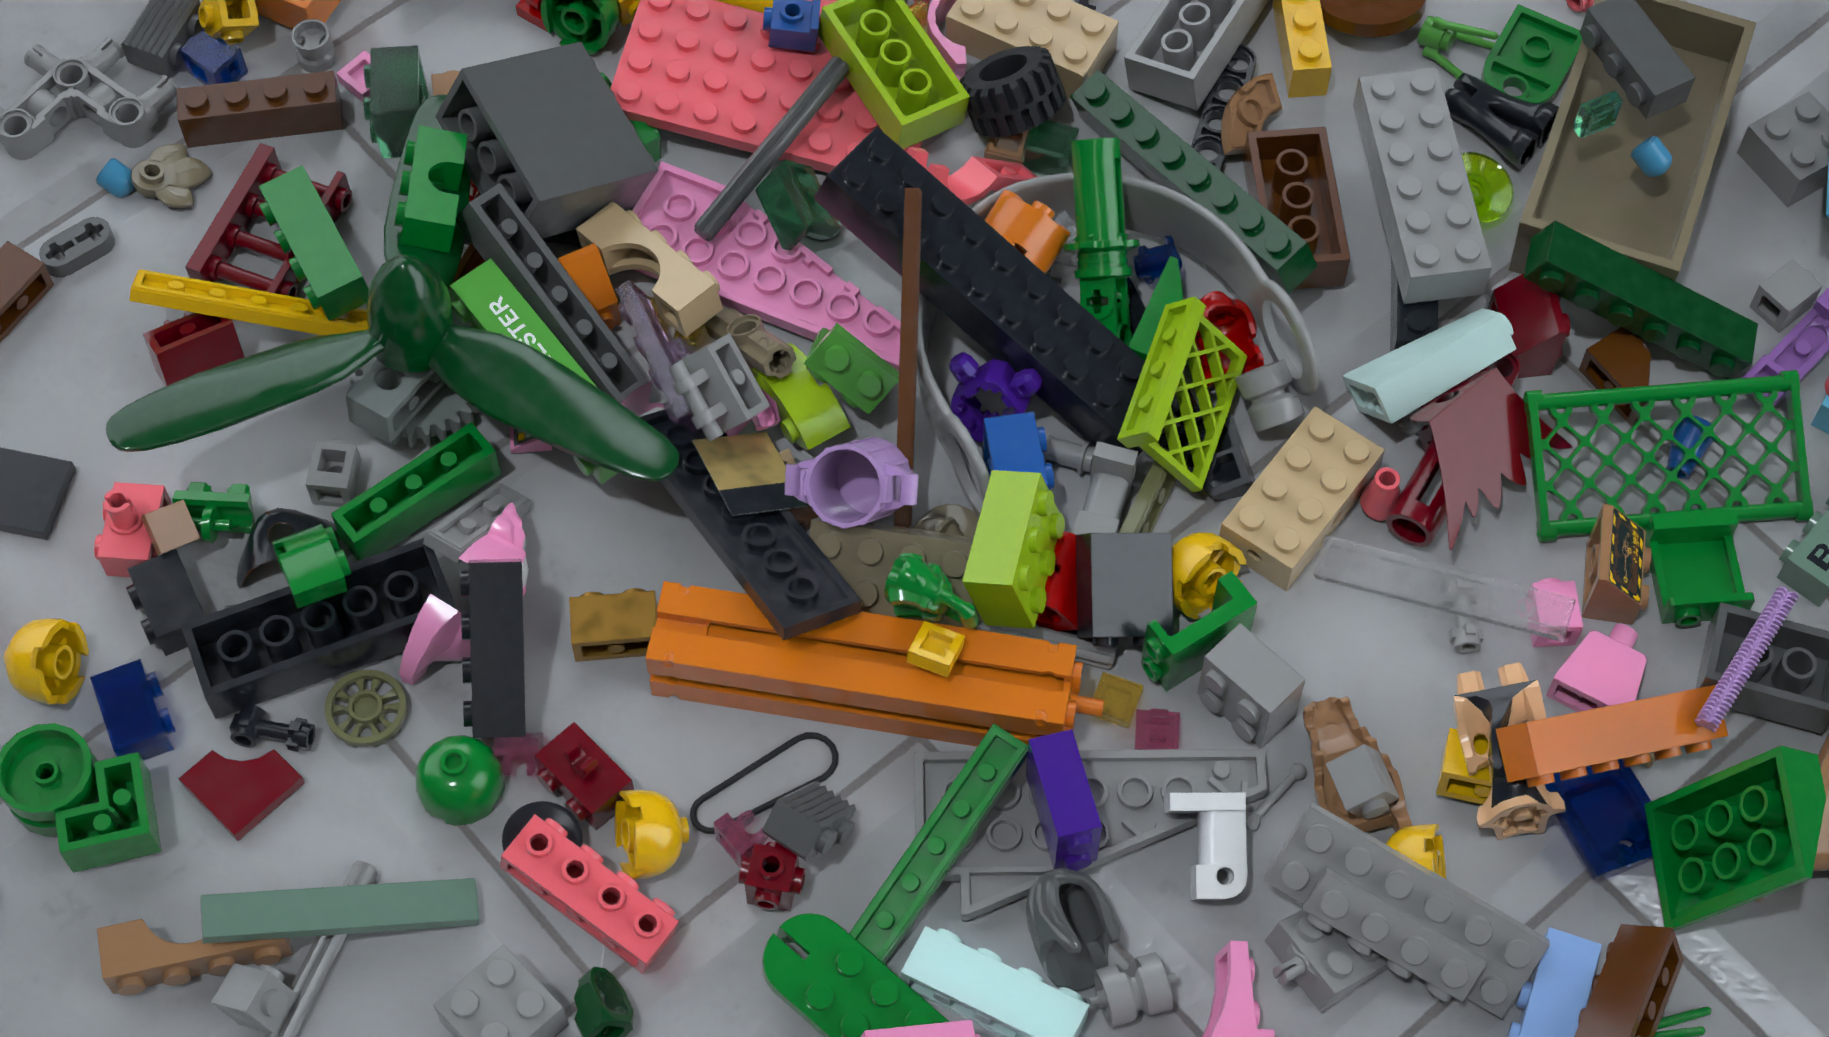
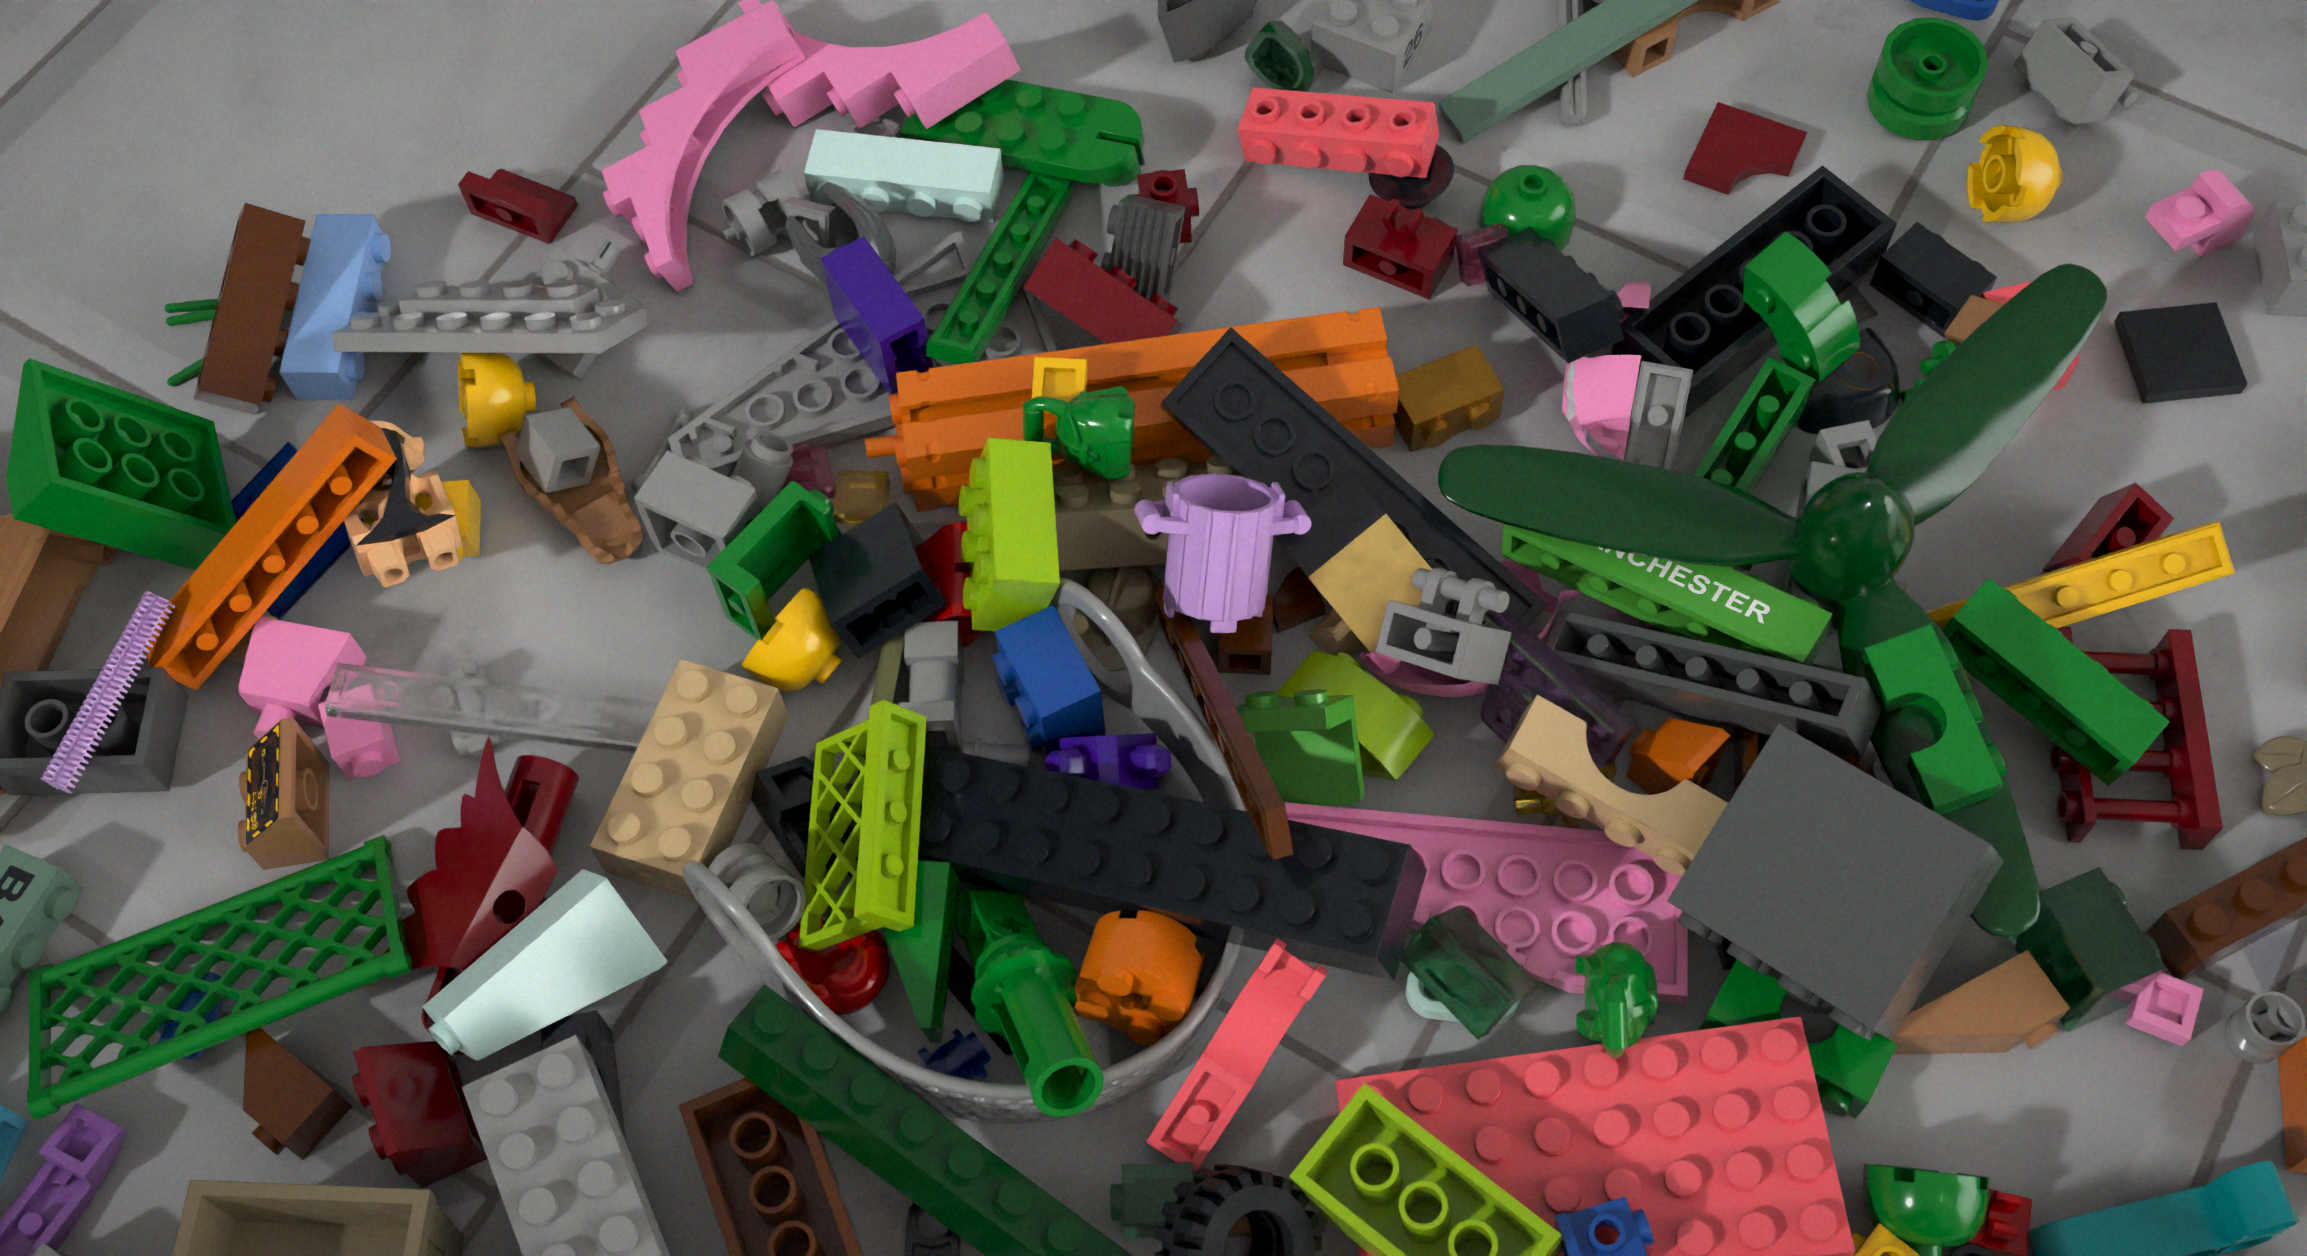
camera: 165 degrees right, 0 degrees up
(119, 824) = (1837, 67): green brick -> none
(132, 710) = (1894, 169): clear blue brick -> none
(251, 724) = (1715, 203): black bar -> none
(366, 708) = (1661, 252): olive wheel -> none
(649, 832) = (1305, 204): yellow cylinder -> none
(714, 152) = (1618, 996): none -> green piece
(734, 838) = (1215, 233): clear pink tile -> none
(755, 343) = (1418, 726): dark tan piece -> none
(771, 148) = (1538, 1037): dark grey axle -> none
(808, 735) = (1250, 304): black piece -> none
(864, 776) = (1098, 299): none -> dark red brick
(1092, 945) = (816, 219): none -> light grey tile
(1194, 725) = (765, 464): none -> light grey brick
(1220, 841) = (711, 363): white piece -> none
(1381, 494) = (583, 813): coral cone -> none
(1640, 300) = (288, 1141): dark green brick -> none
(1695, 565) = (180, 845): green panel -> none

